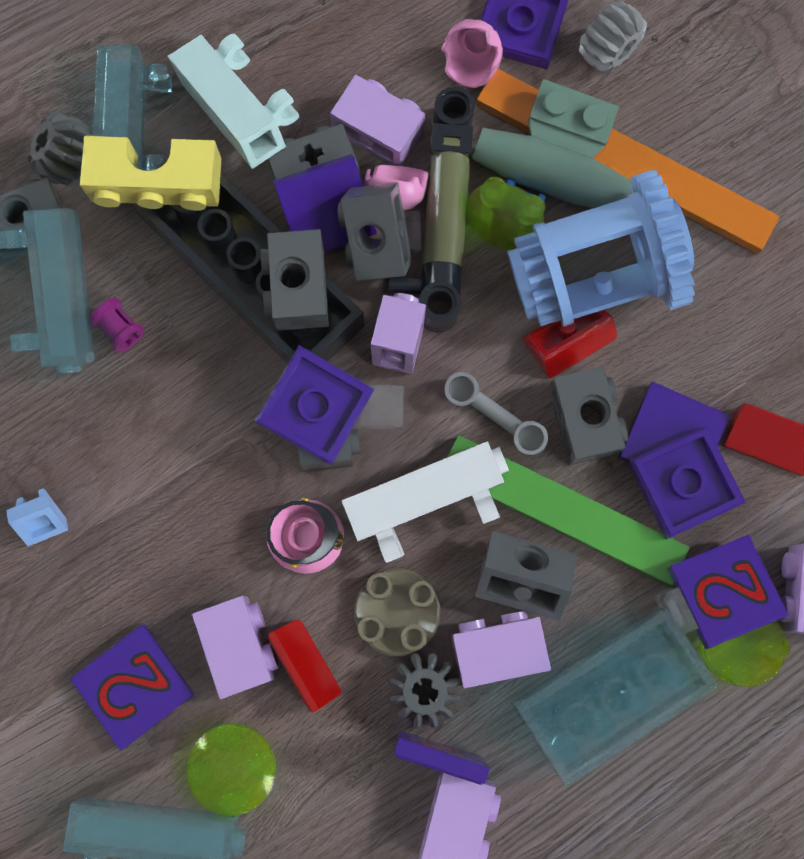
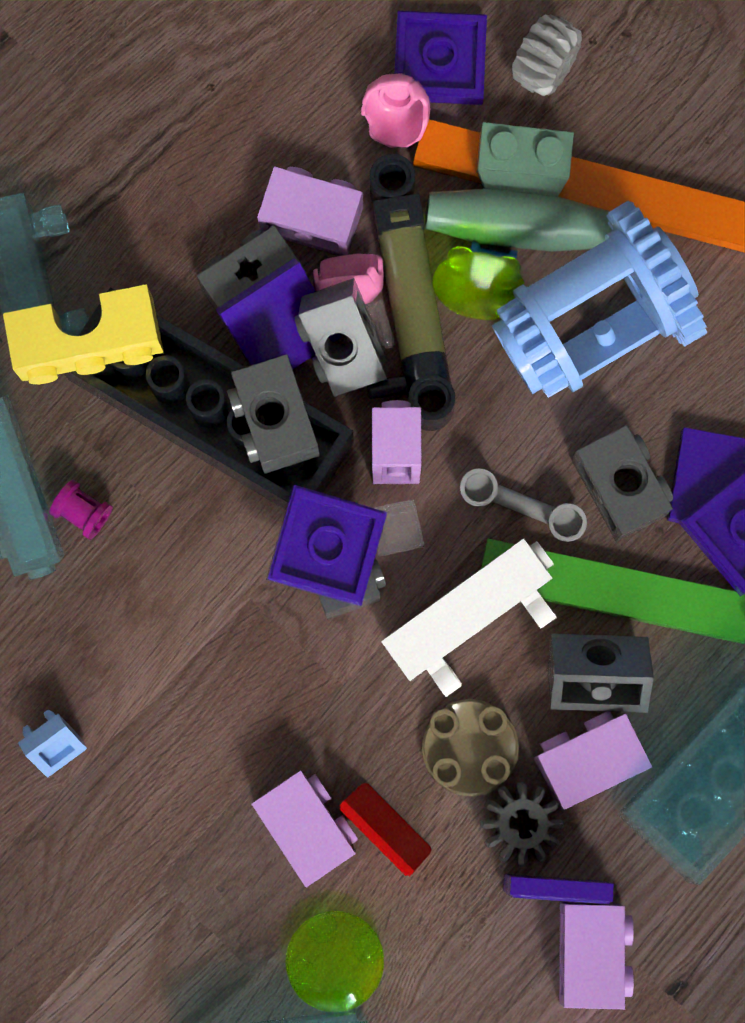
camera: 10 degrees left, 0 degrees up
(132, 686) = (203, 900): dark purple tile -> none
(228, 101) = (141, 231): light aqua brick -> none
(305, 536) = (348, 690): bright pink piece -> none
(561, 347) = (576, 414): red slope -> none

